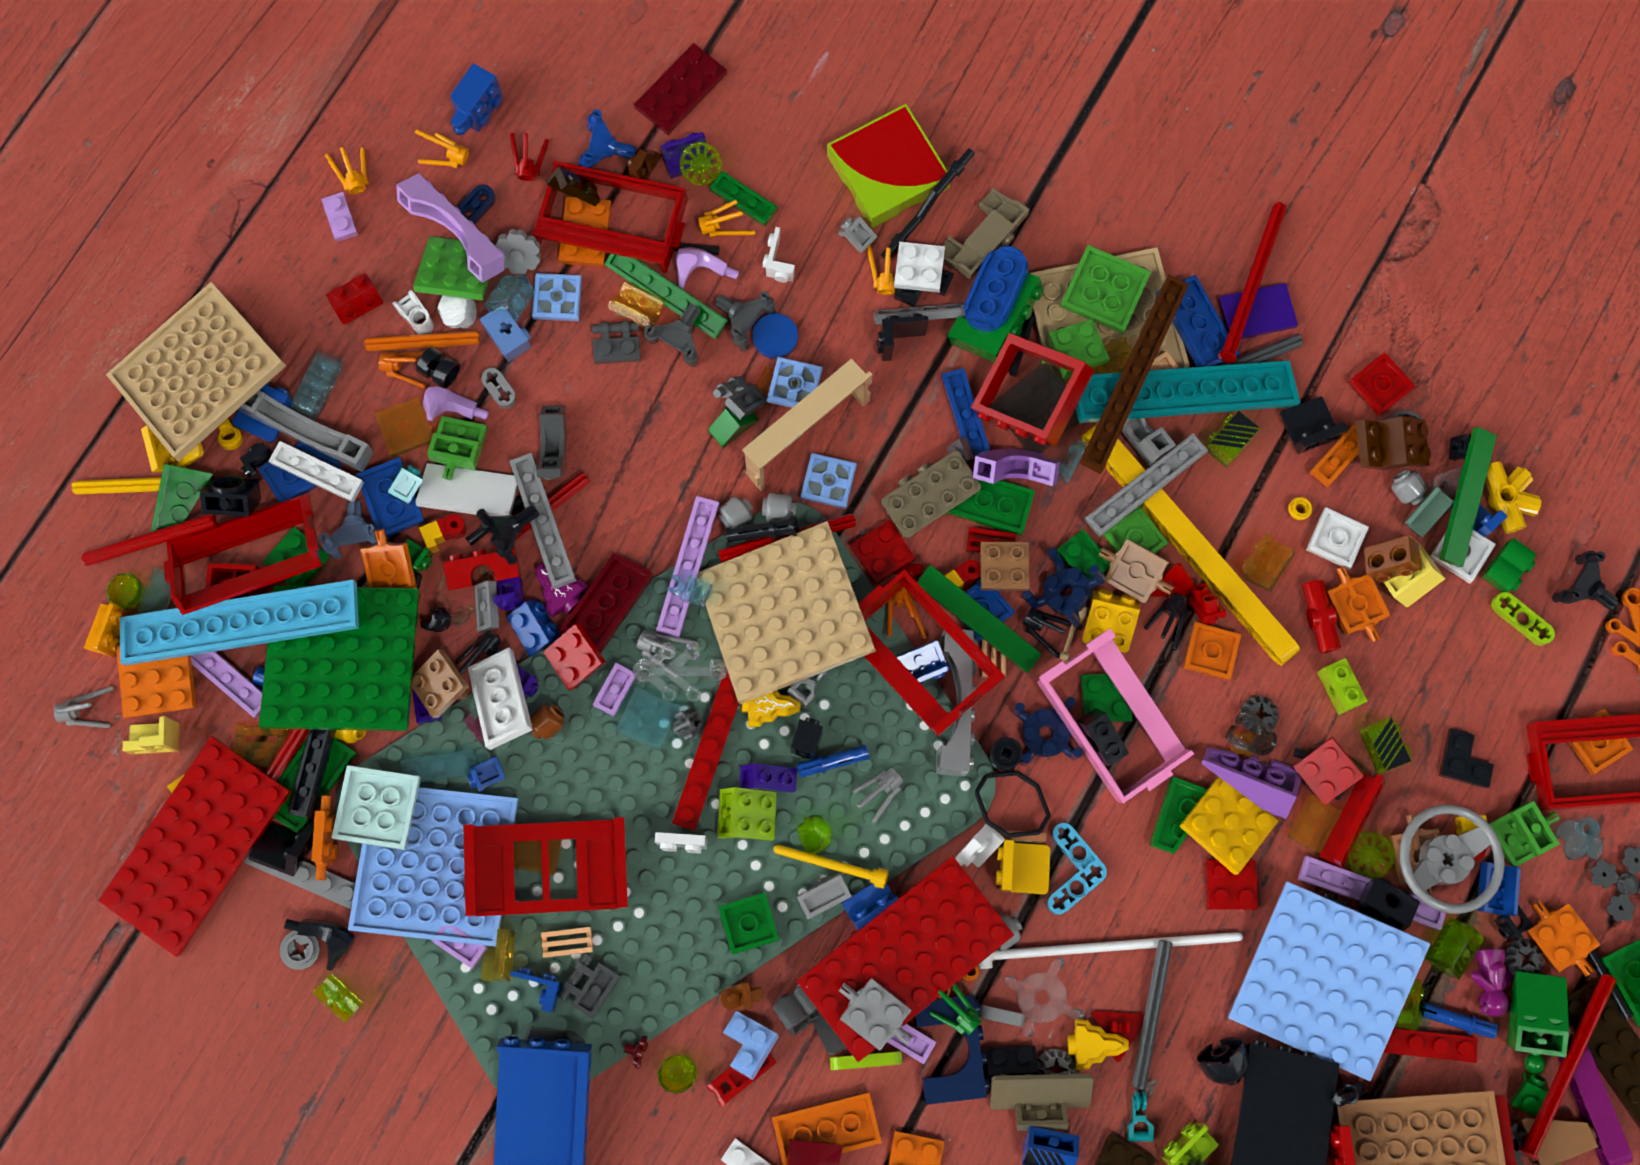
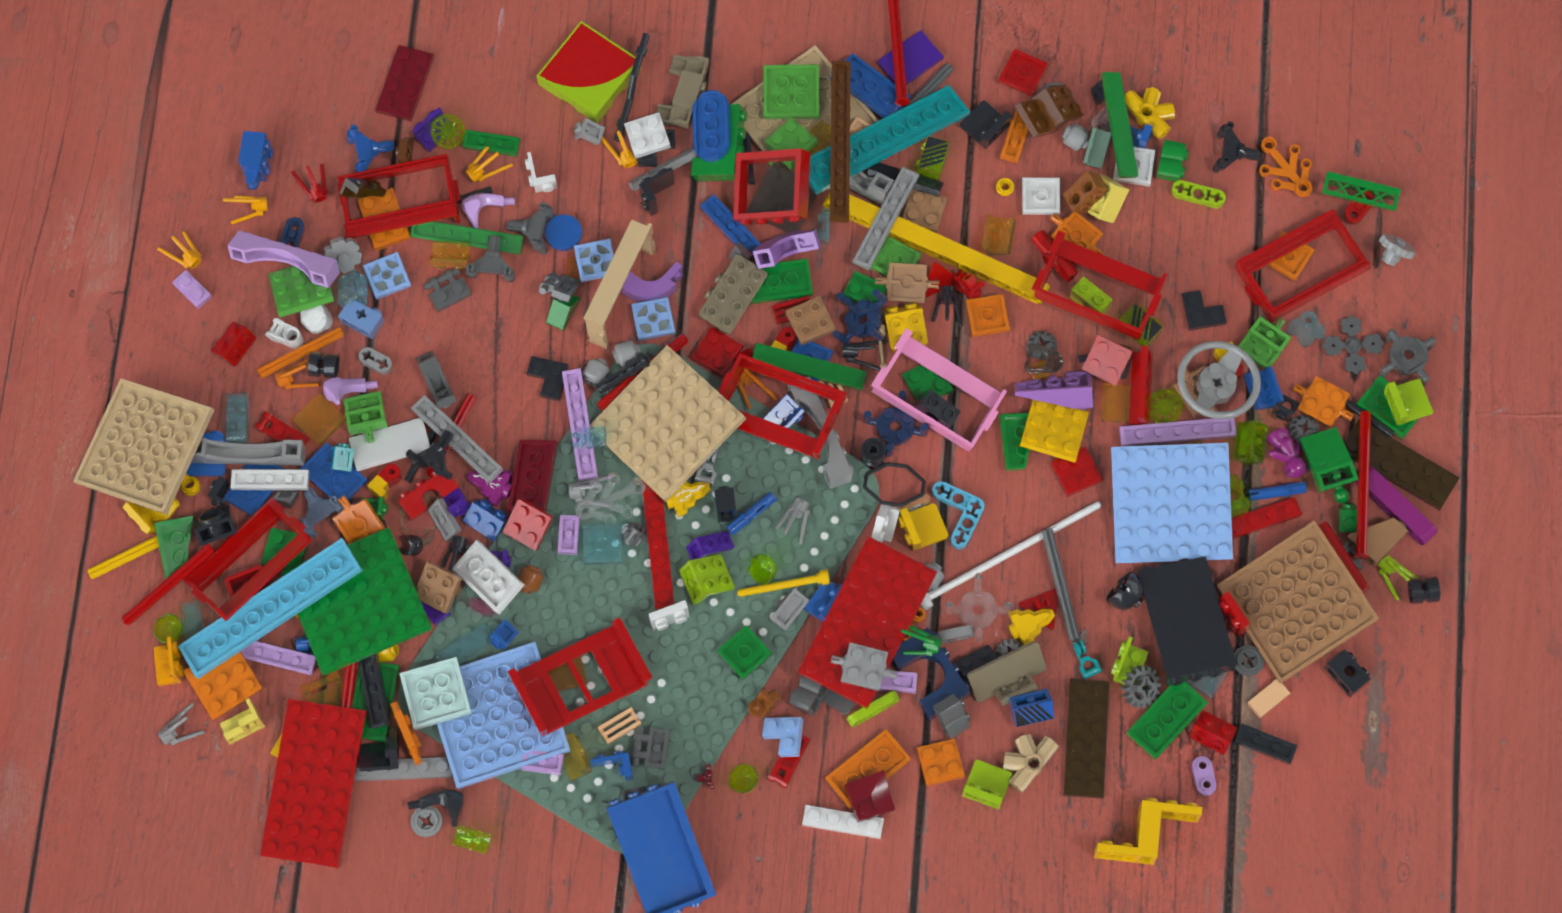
camera: 20 degrees left, 5 degrees down
(325, 500) = (287, 498): none -> flat silver plate
(357, 421) = (279, 430): none -> red plate
(685, 490) = (551, 373): none -> black plate
(834, 445) = (641, 290): none -> medium lavender arch
(953, 1116) = (952, 716): none -> dark grey brick
(1196, 494) = (925, 210): none -> medium nougat plate
(1208, 464) = (923, 183): none -> black tile
(1349, 1094) = (1222, 573): black axle -> none
(1374, 903) = (1179, 430): black brick -> none
(1380, 661) = (1107, 267): none -> red piece

